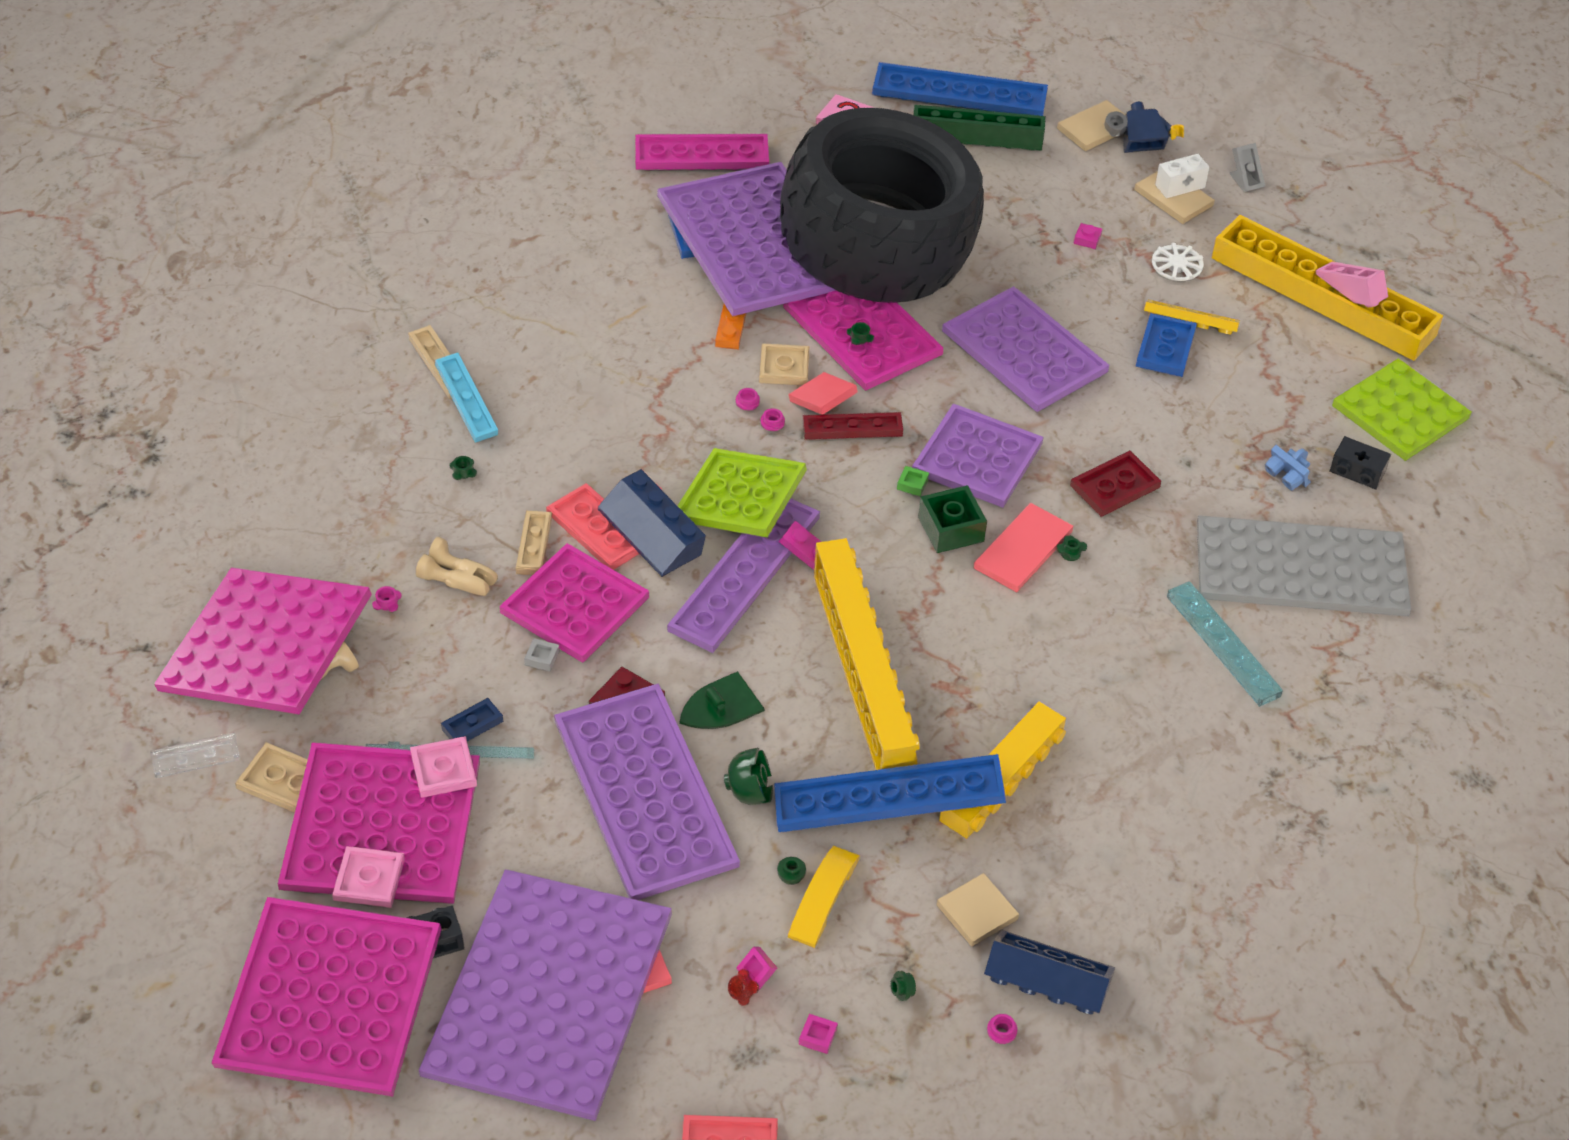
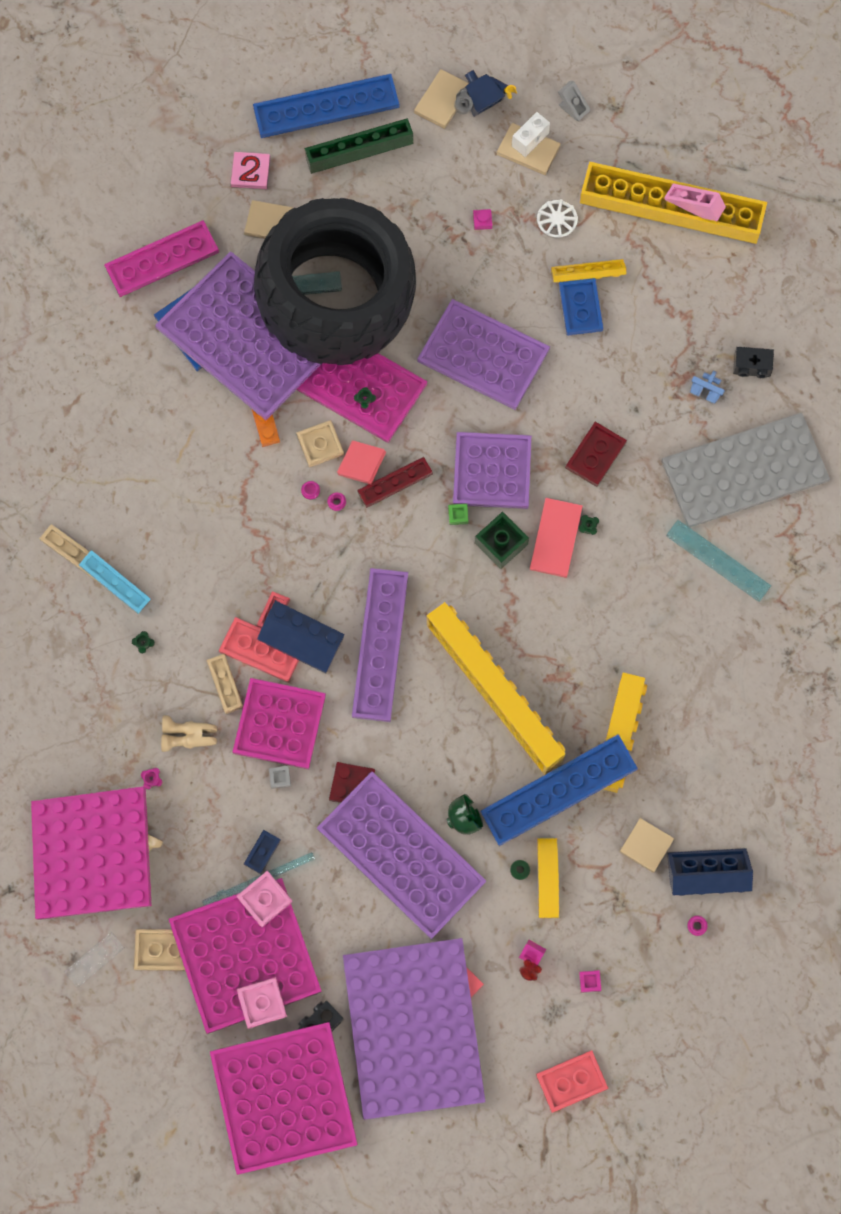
camera: 20 degrees left, 25 degrees up
(721, 704) = (414, 759): dark green shield -> none
(741, 491) = (347, 581): lime plate -> none
(800, 543) = (412, 607): dark pink plate -> none
(903, 985) = (626, 924): dark green plate -> none
(1401, 409) = (763, 294): lime plate -> none

